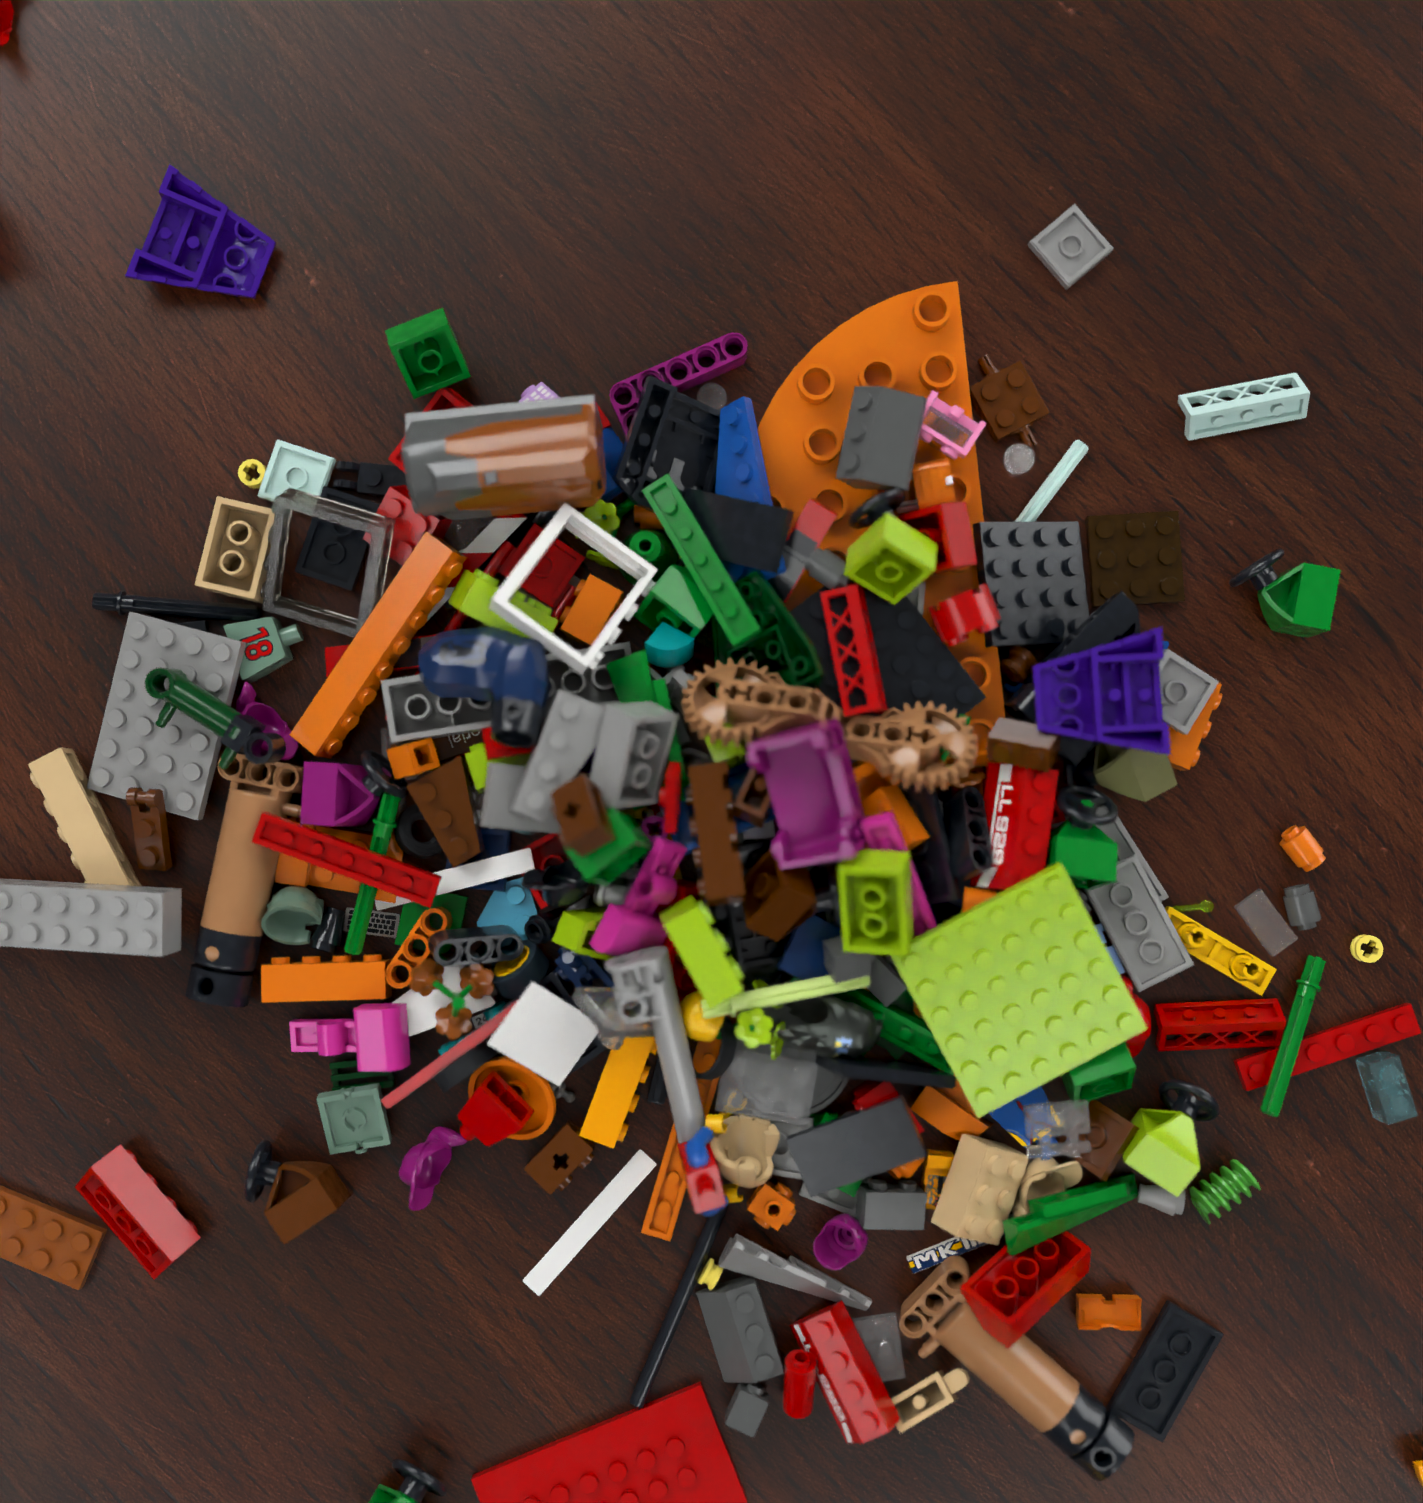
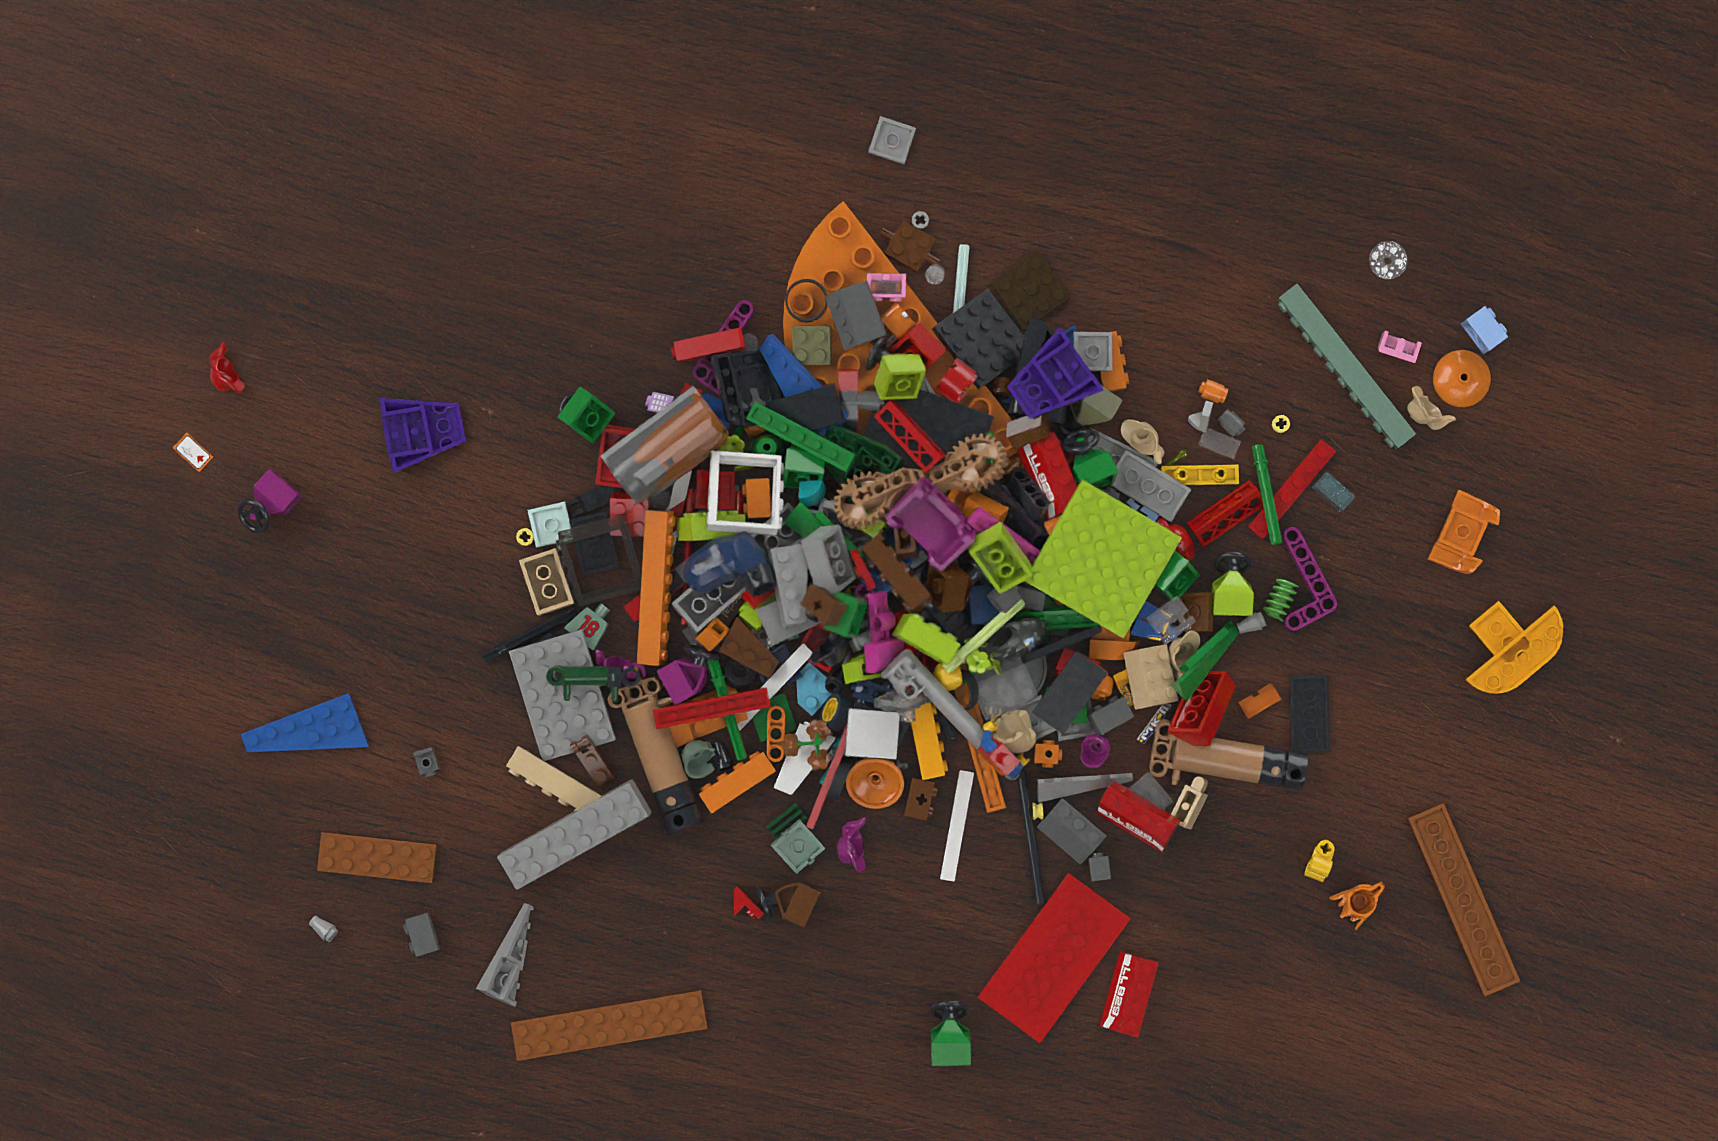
camera: 35 degrees left, 0 degrees up
(137, 1211) = (712, 968): slope -> none
(235, 1145) = (742, 900): none -> red slope
(376, 1034) = (782, 792): dark pink plate -> none
(380, 923) = (748, 736): sticker -> none
(487, 953) = (814, 711): black beam -> none
(493, 1112) = (869, 794): red torso -> none
(648, 357) = (709, 345): none -> red slope
(796, 446) = (812, 344): none -> olive plate
(799, 1383) = (1118, 837): red brick -> none
(824, 348) = (802, 281): none -> black tyre
(1046, 366) = (920, 214): none -> light grey bush
(1168, 853) = (1142, 438): none -> tan hair
(1247, 409) = (1040, 172): light aqua fence -> none
(1263, 878) = (1201, 420): none -> light grey tile
(1277, 1191) = (1309, 580): none -> magenta beam
(1297, 599) = (1127, 261): green piece -> none

